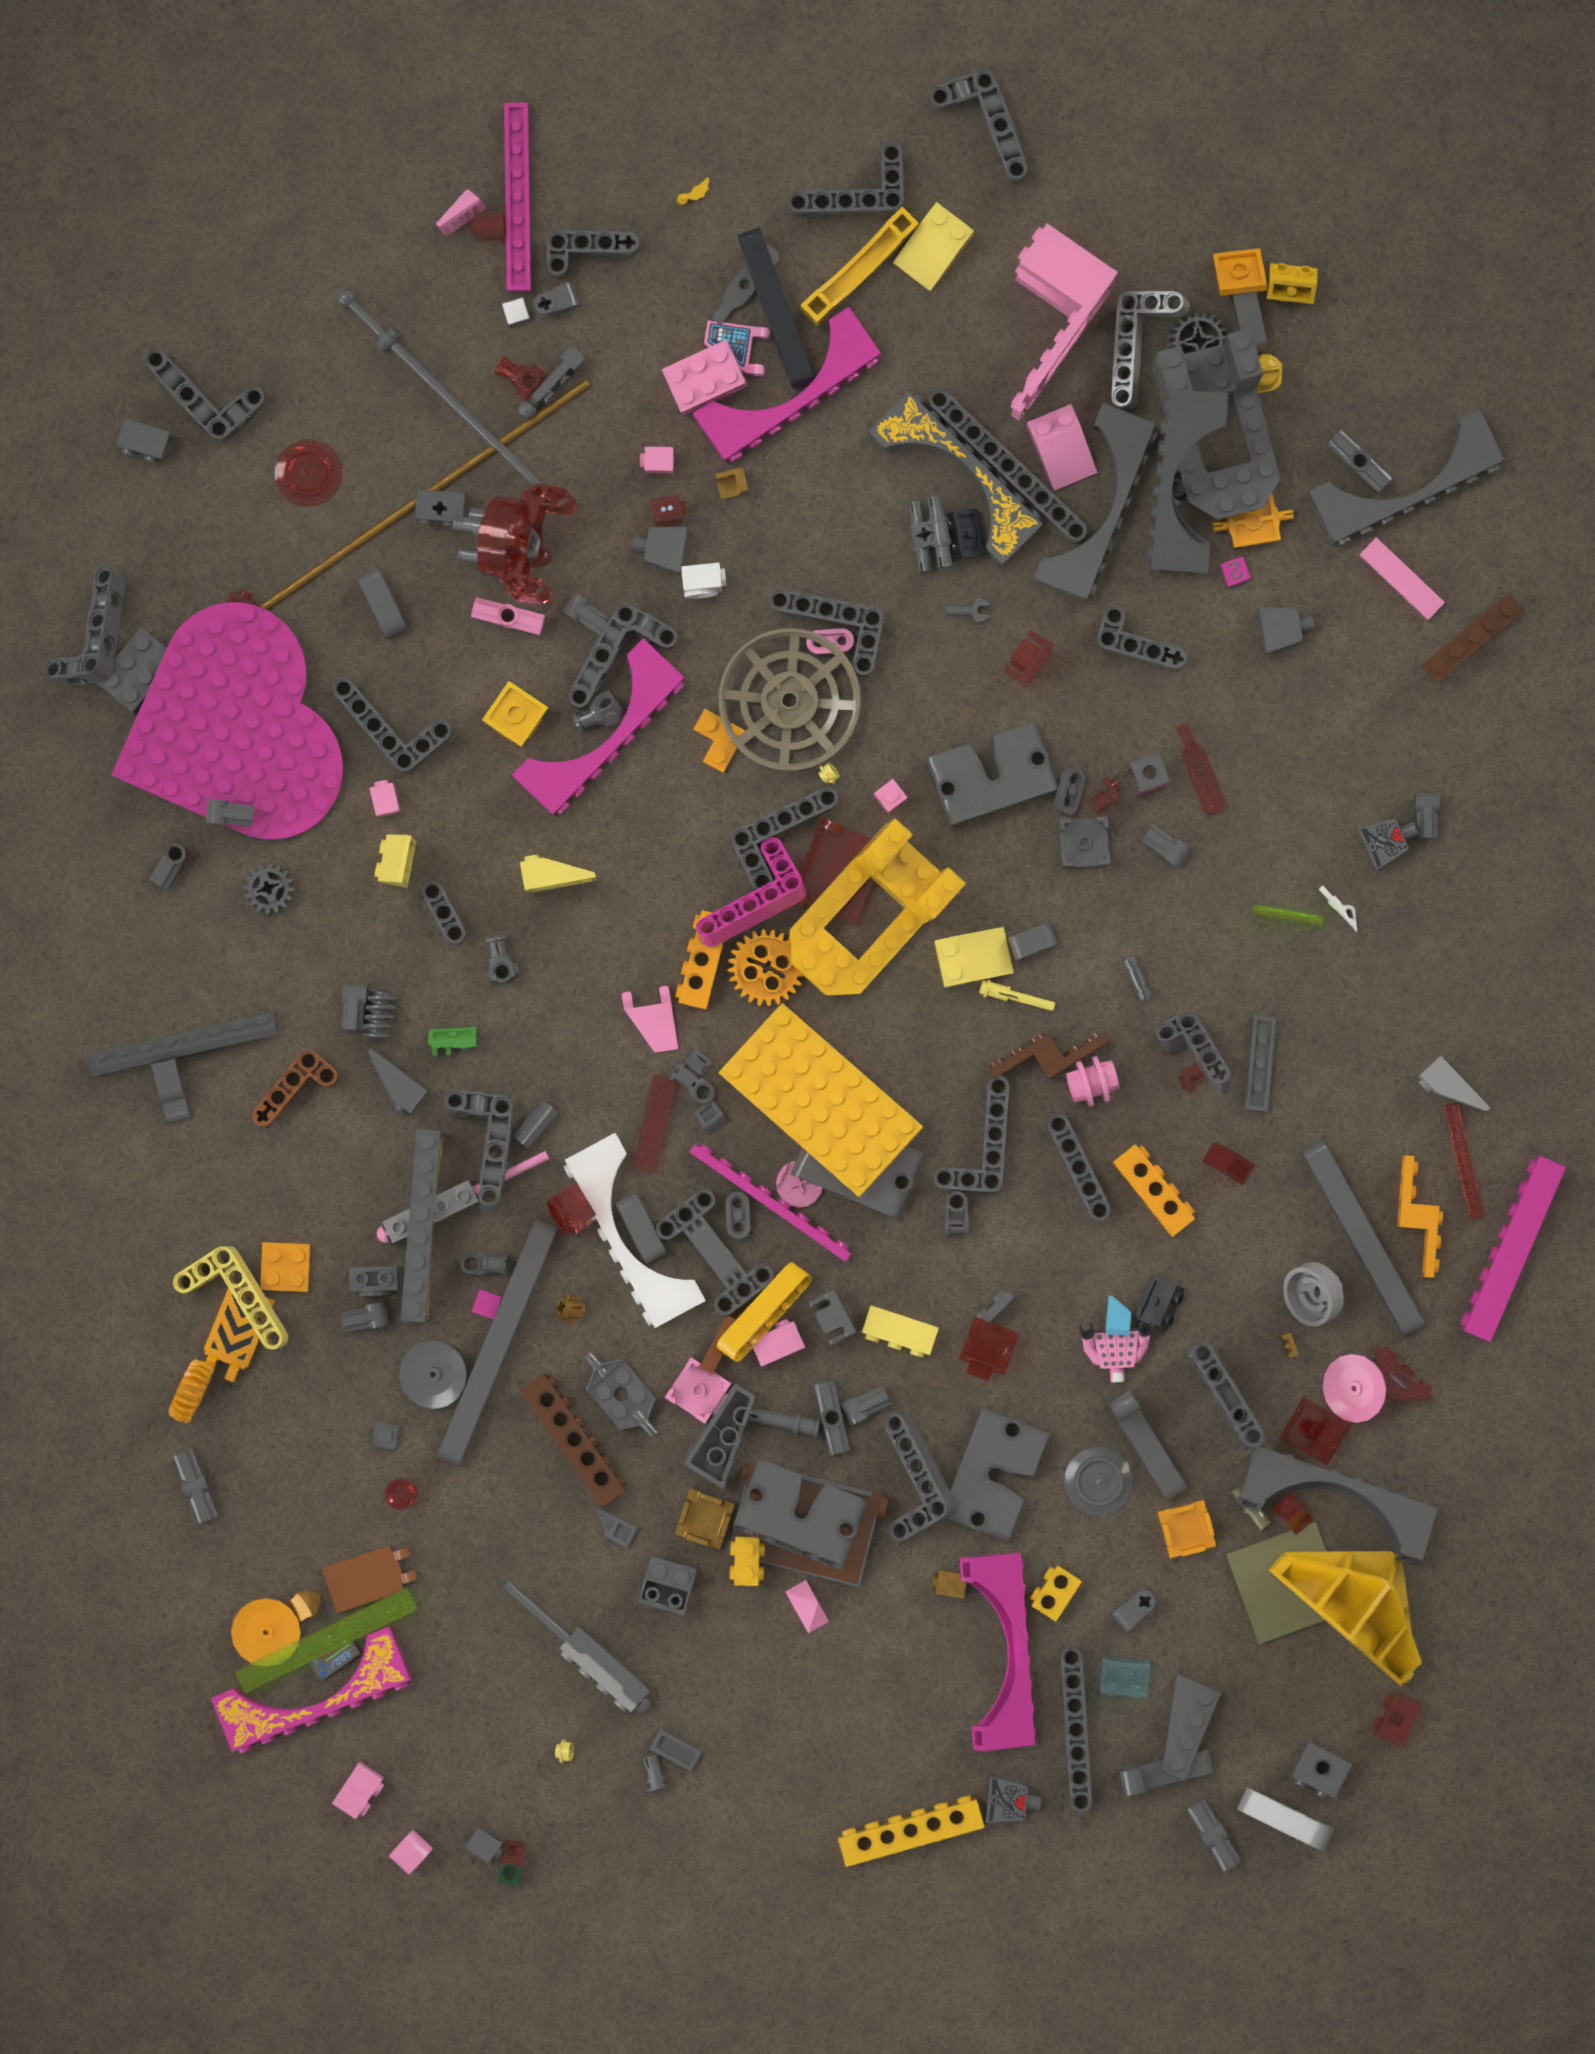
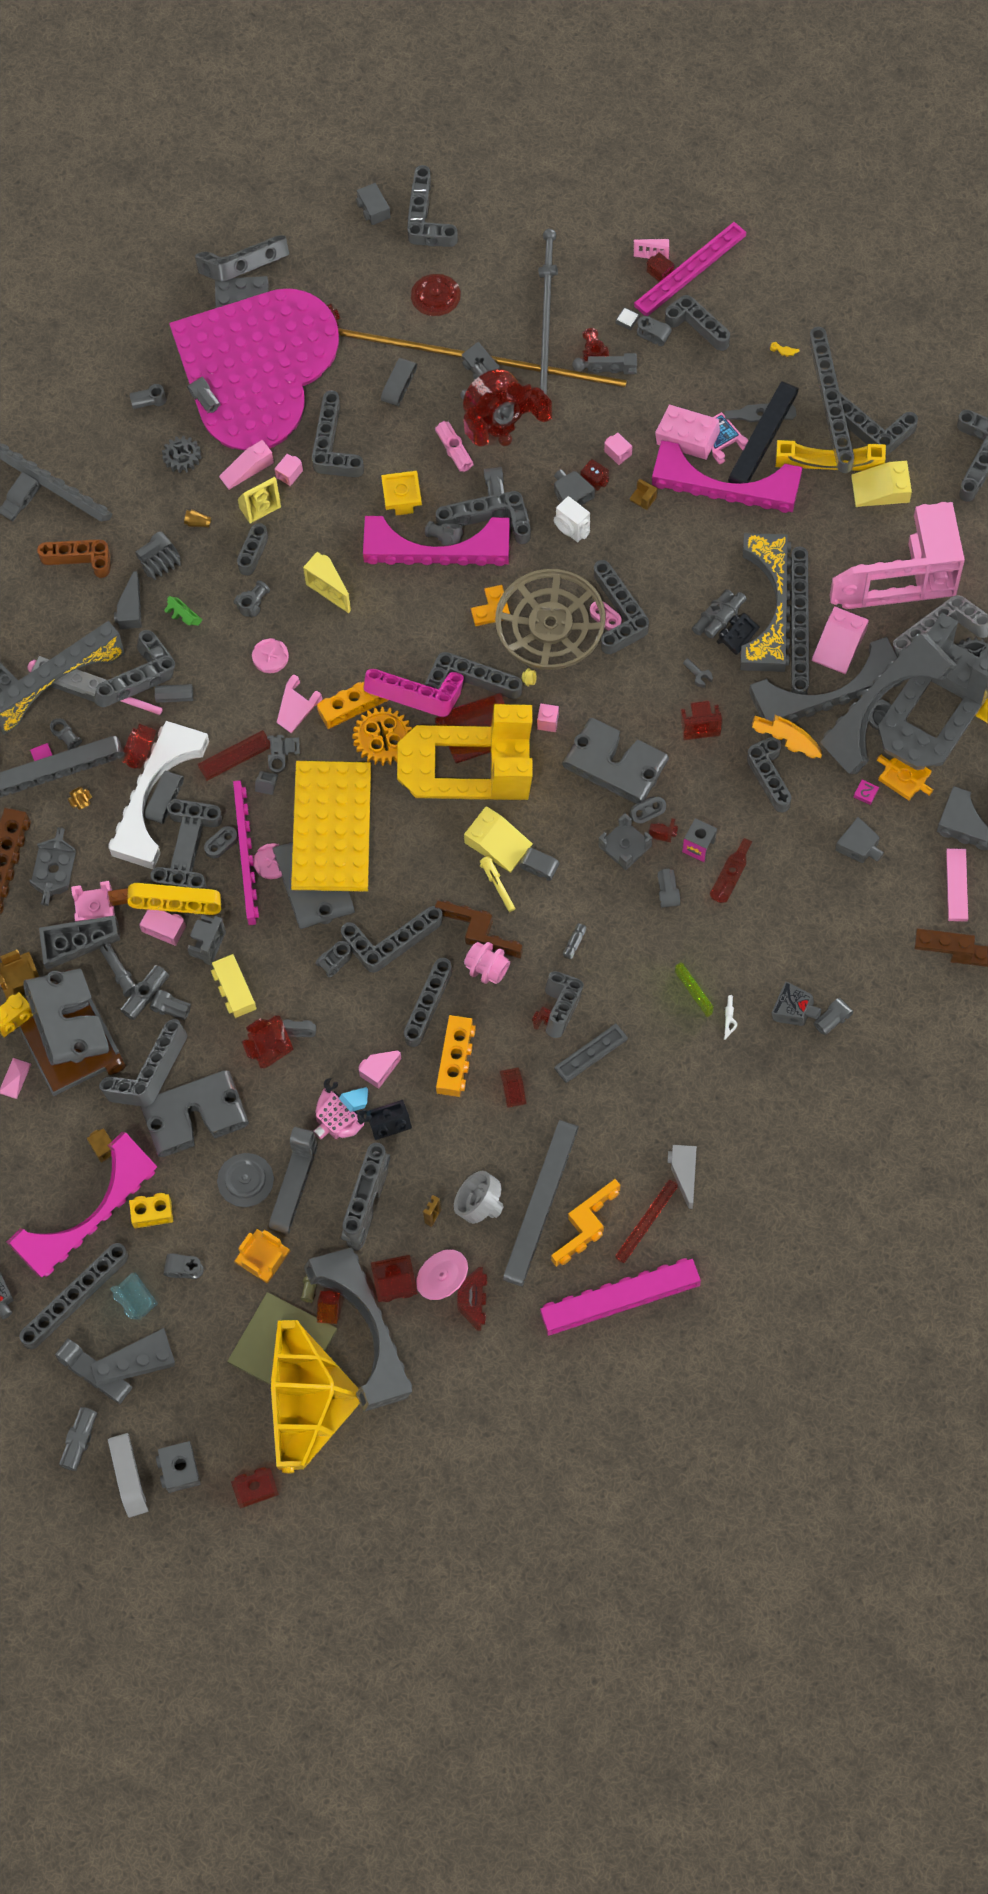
camera: 50 degrees right, 20 degrees down
(341, 836) = (247, 464): none -> bright pink slope
(358, 937) = (196, 519): none -> pearl gold cone
(576, 996) = (270, 655): none -> bright pink tile
(798, 200) = (831, 406): none -> dark grey beam
(1102, 1269) = (378, 1067): none -> bright pink slope
(1122, 587) = (795, 736): none -> light orange slope

